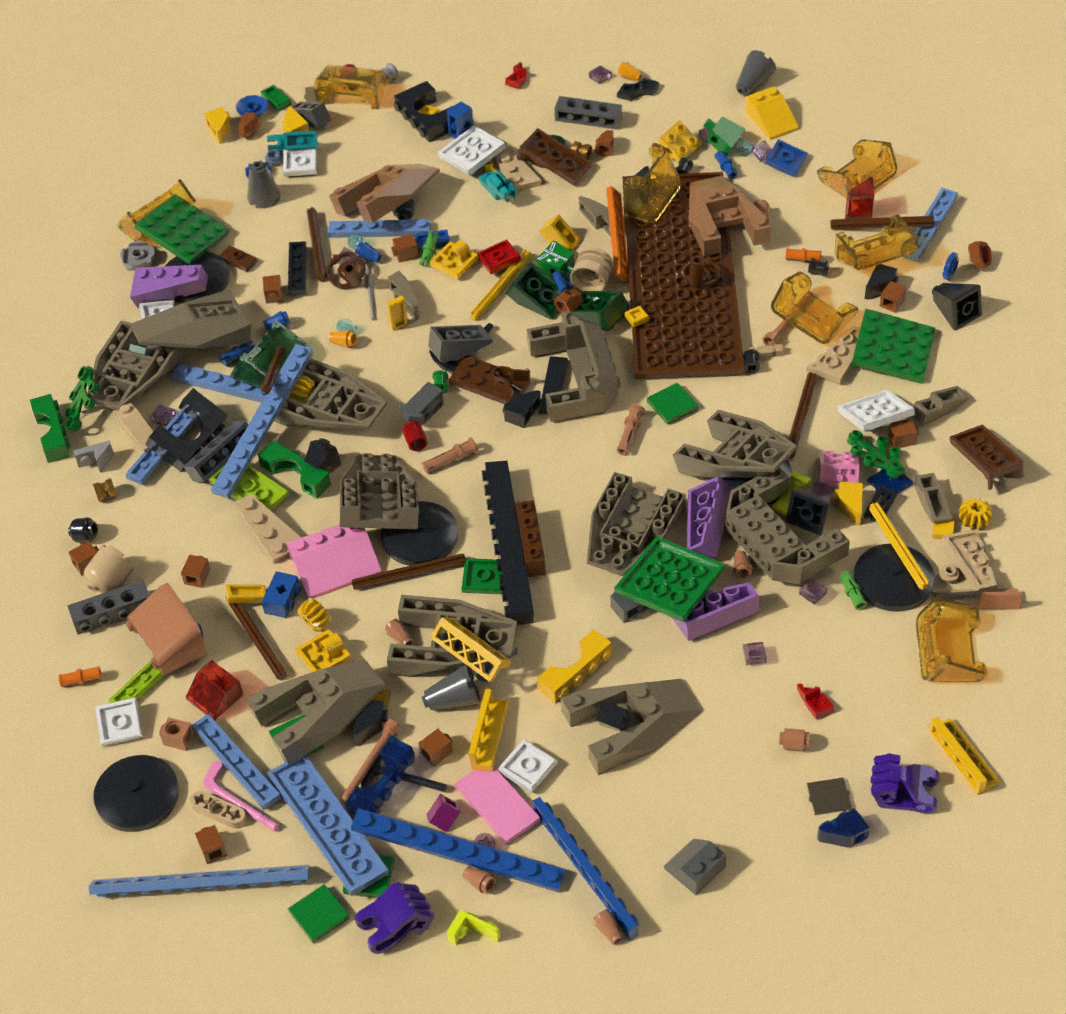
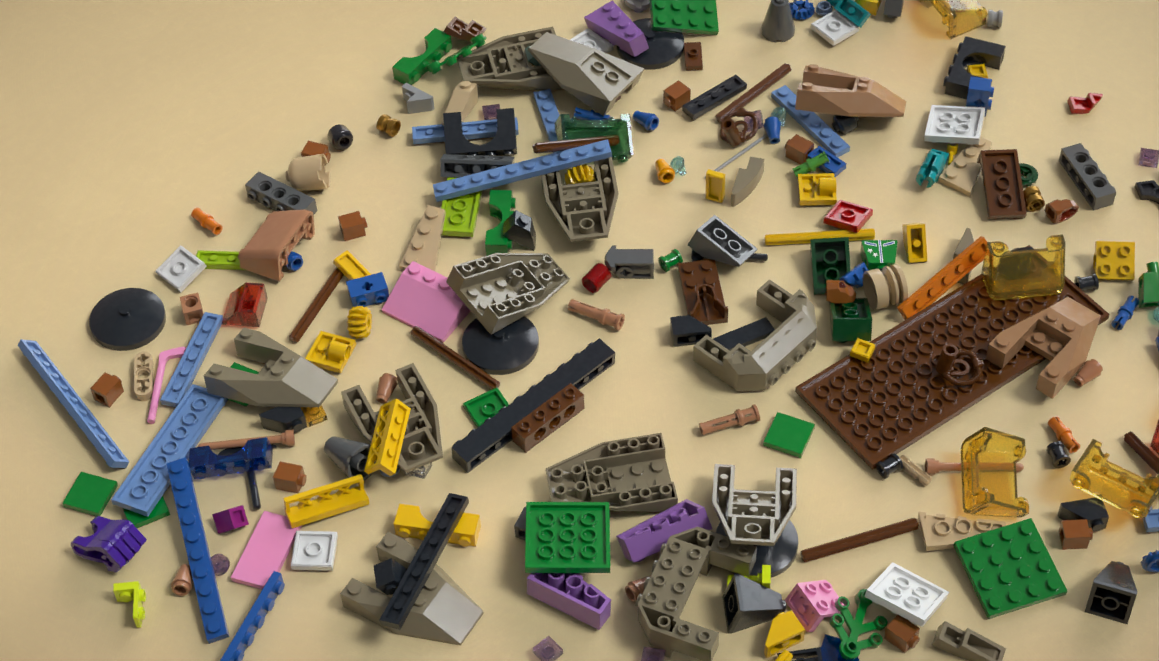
camera: 55 degrees right, 0 degrees up
(53, 382) = (462, 30): none -> reddish brown slope
(618, 683) = (424, 561): none -> black plate

